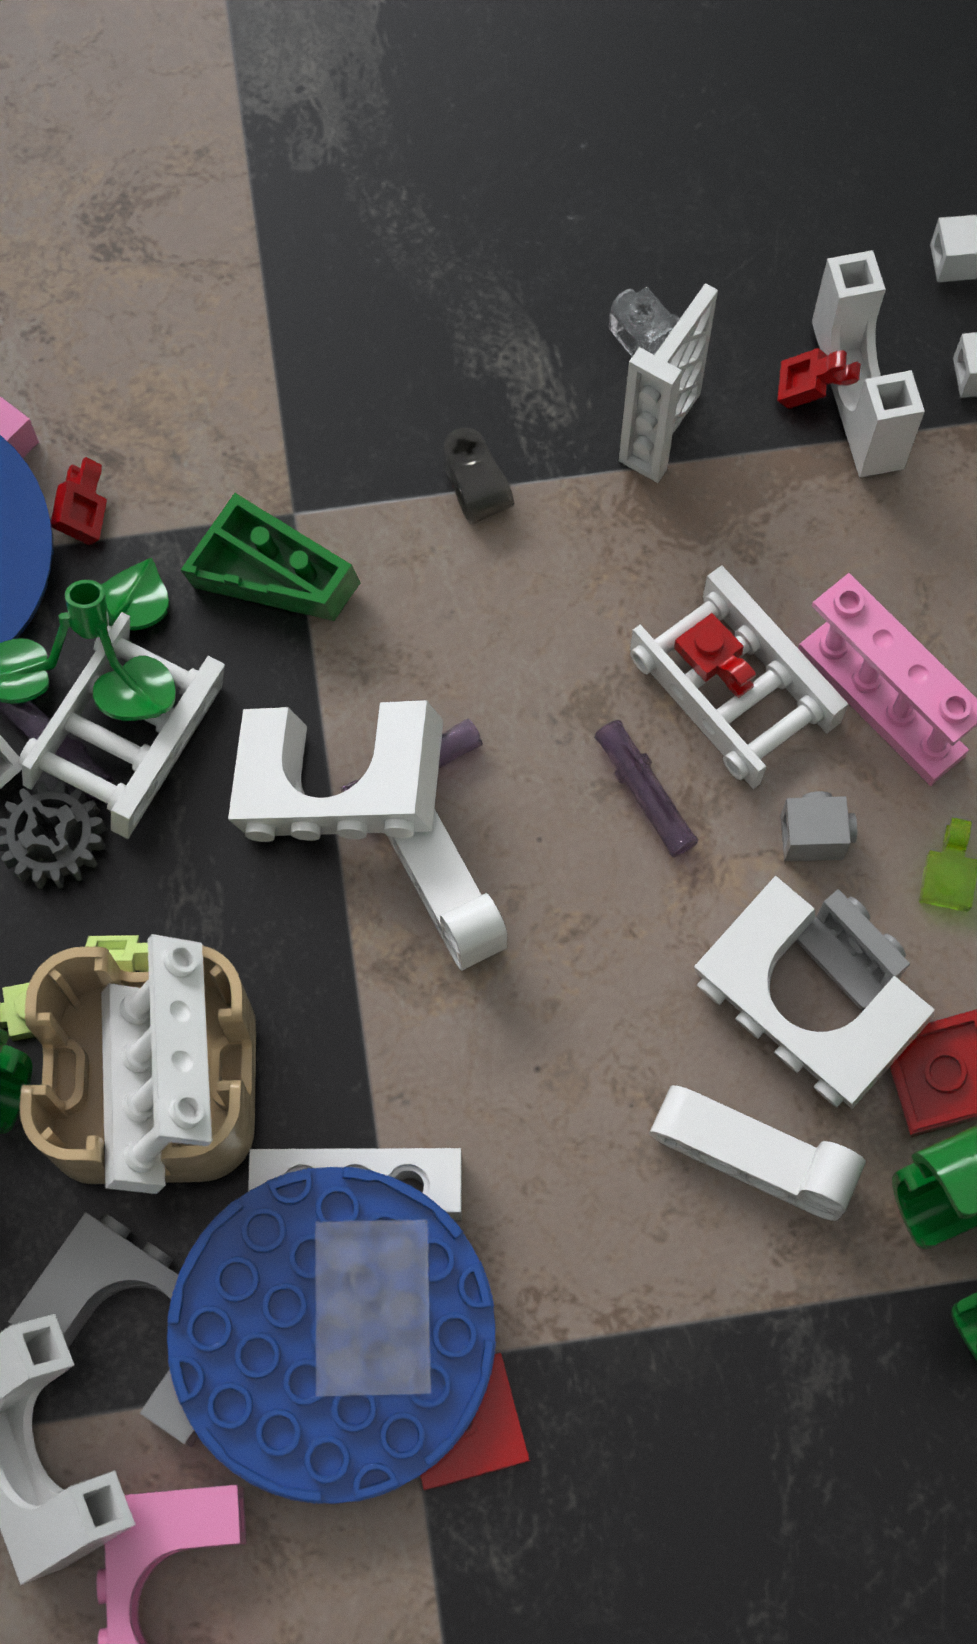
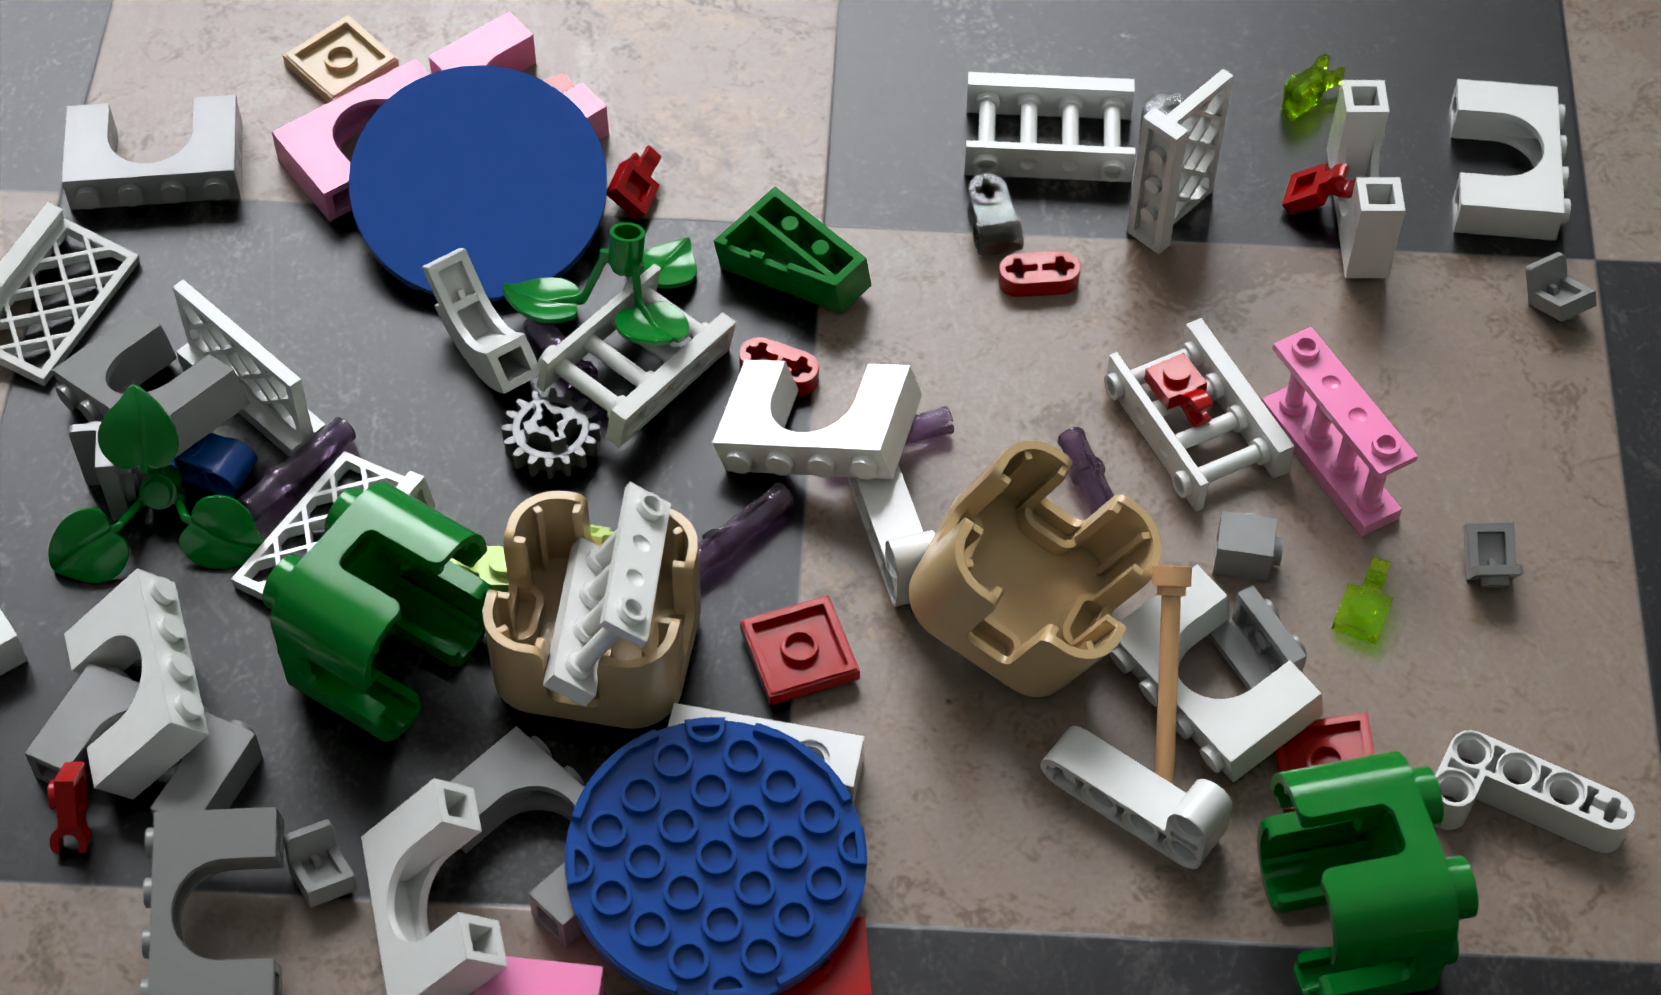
camera: 10 degrees right, 15 degrees down
(260, 933) = (720, 543): none -> clear purple pin
(281, 689) = (795, 360): none -> beam
(369, 1045) = (799, 650): none -> plate
(372, 1308) = (756, 828): clear brick -> none
(509, 313) = (1057, 97): none -> white fence
(536, 533) = (1039, 274): none -> red beam
(601, 932) = (1026, 581): none -> tan piece
(760, 924) = (1171, 584): none -> light nougat piece
(779, 254) = (1306, 88): none -> clear neon green plate

